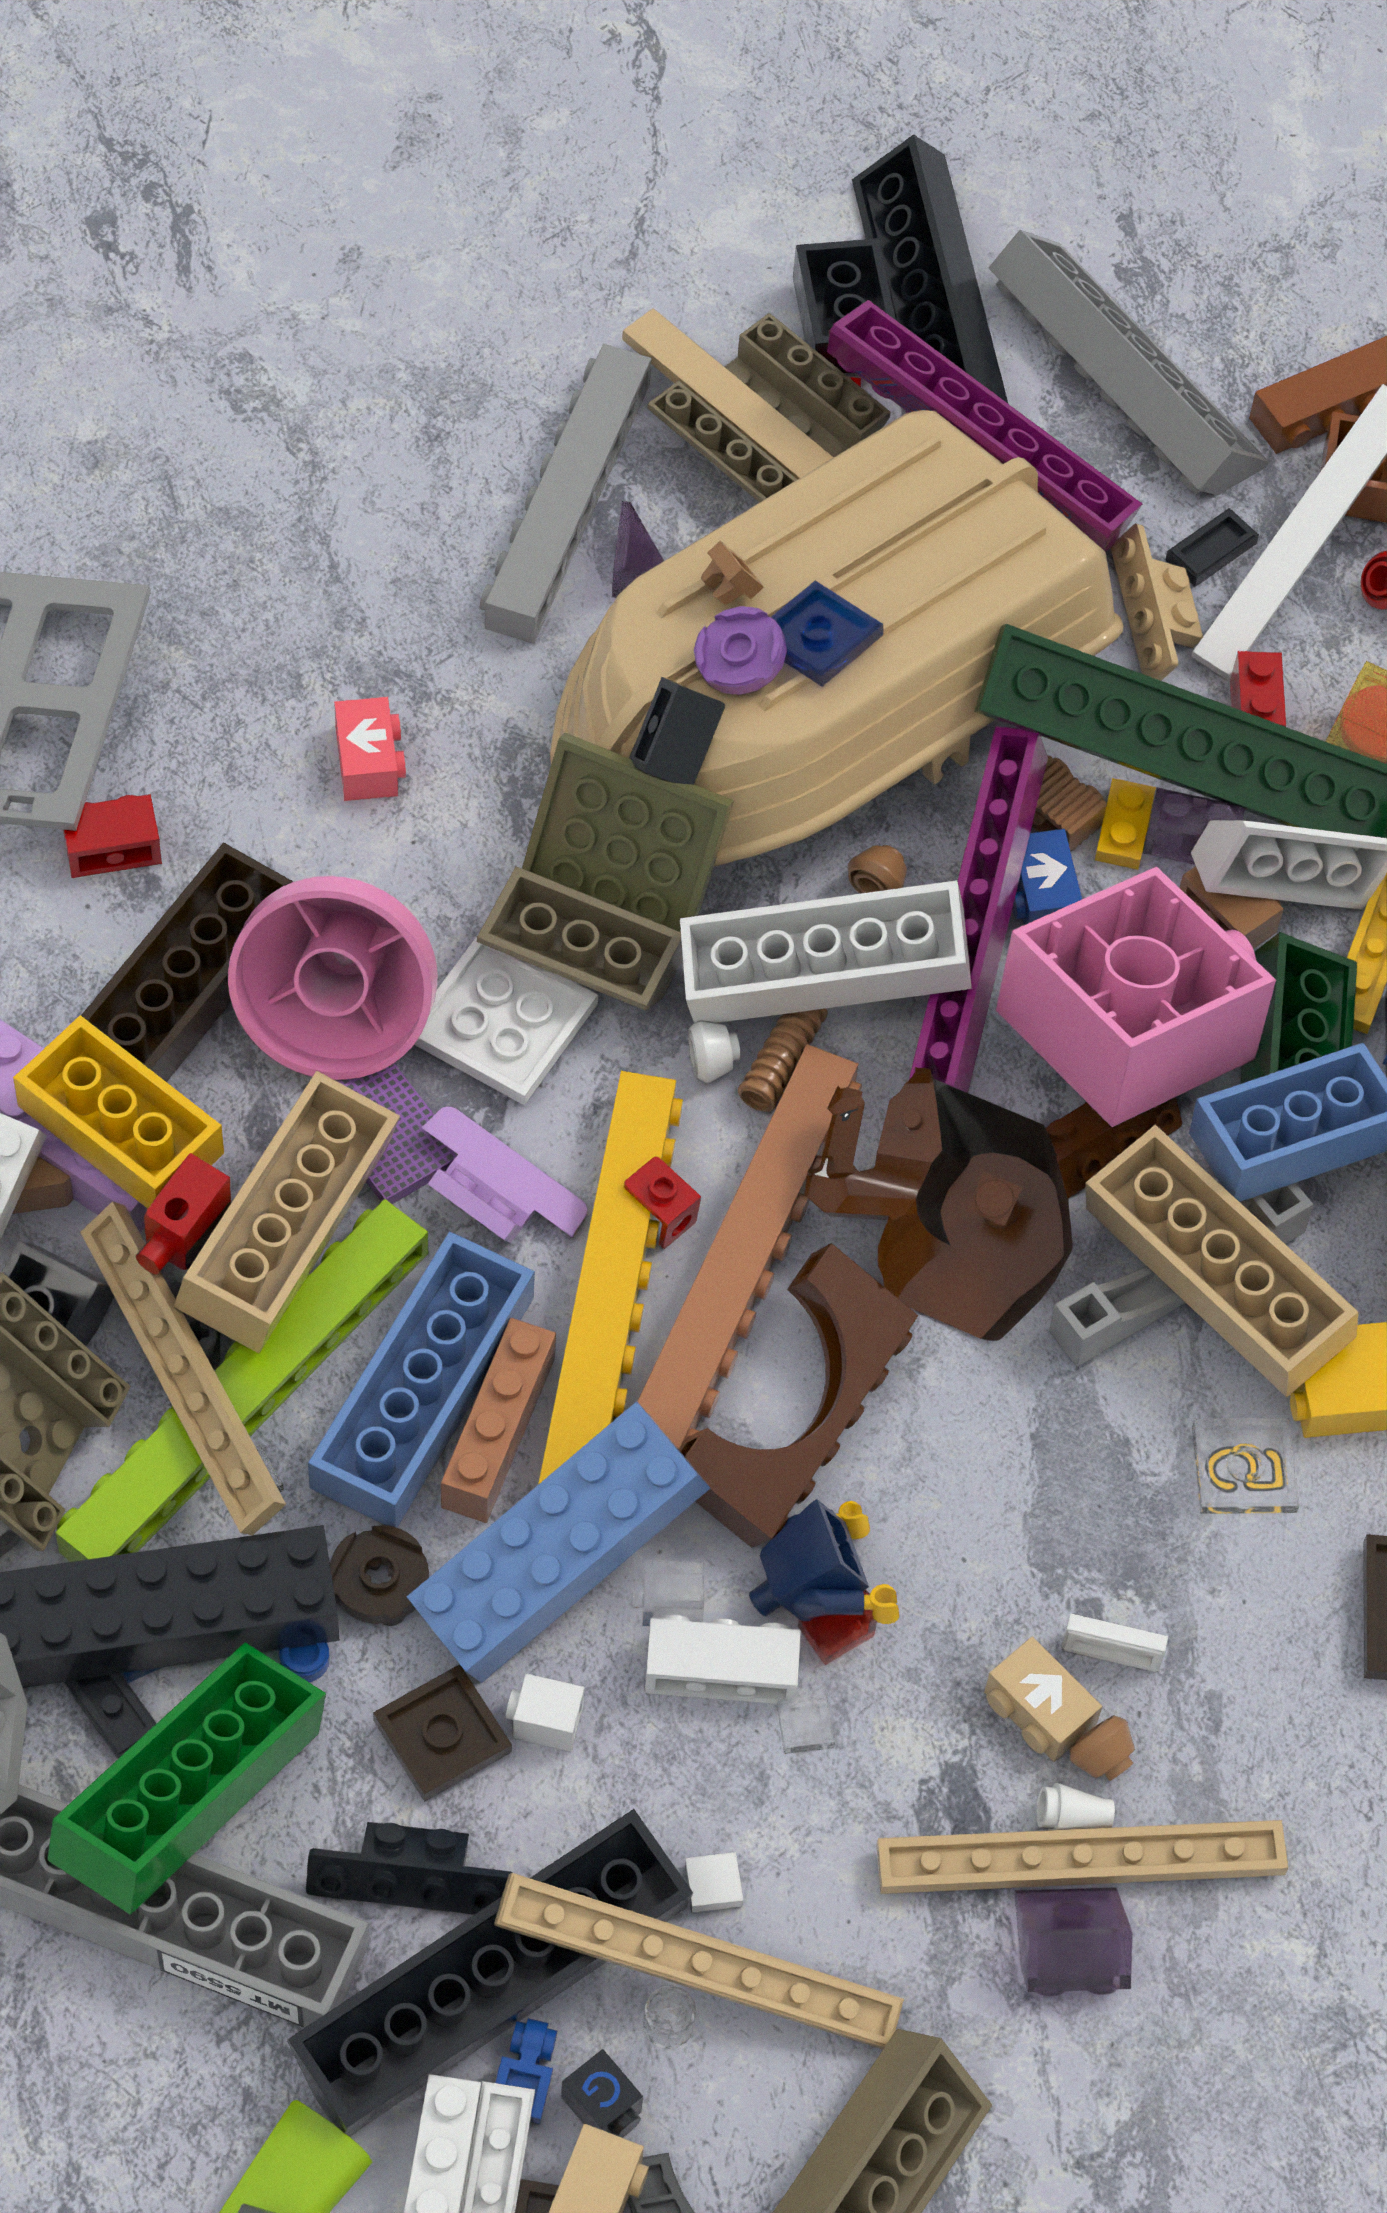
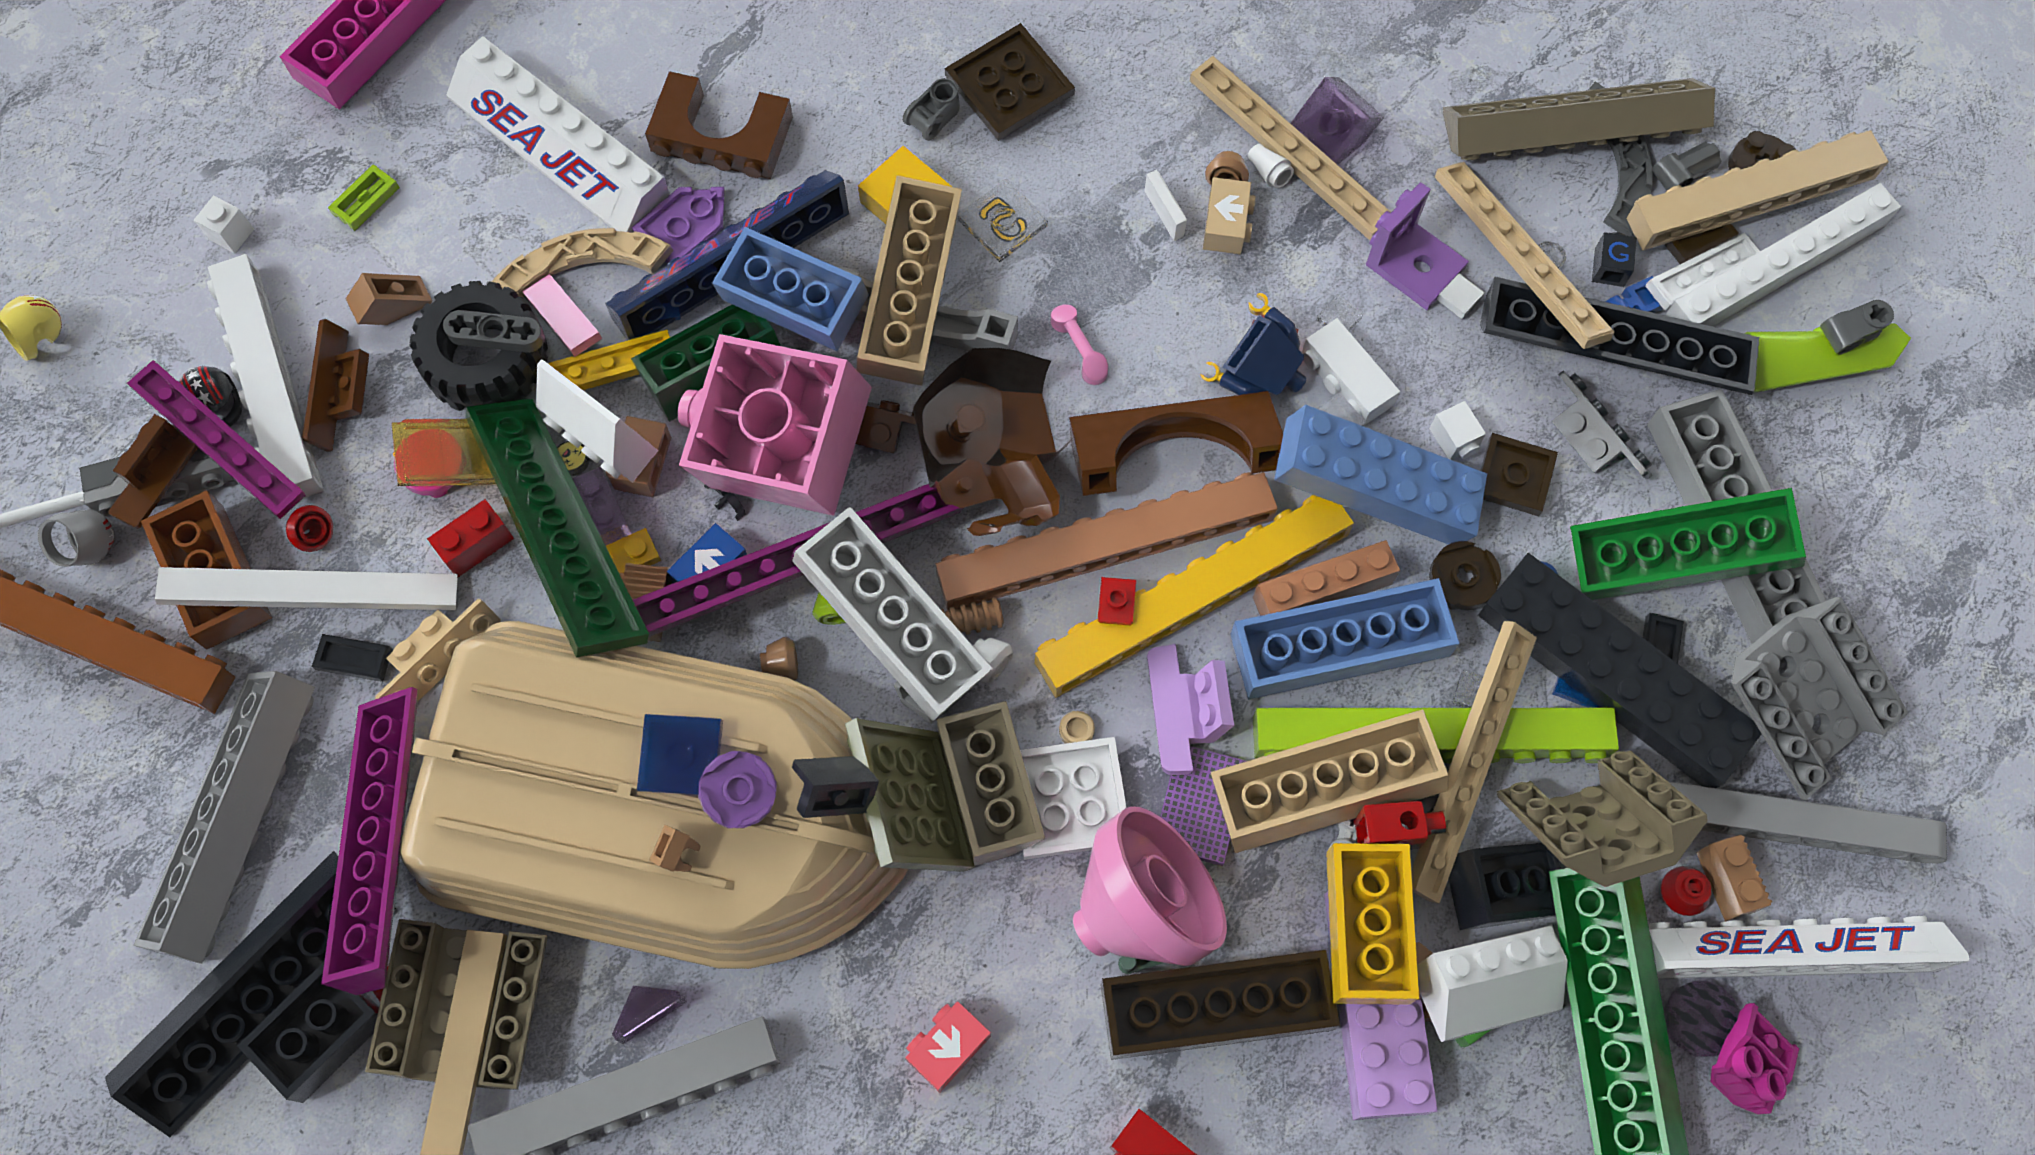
camera: 125 degrees left, 10 degrees up
(567, 1082) = (1076, 727): none -> tan tile
(833, 1852) = (1404, 242): none -> medium lavender bracket
(1055, 1424) = (1094, 363): none -> bright pink bar

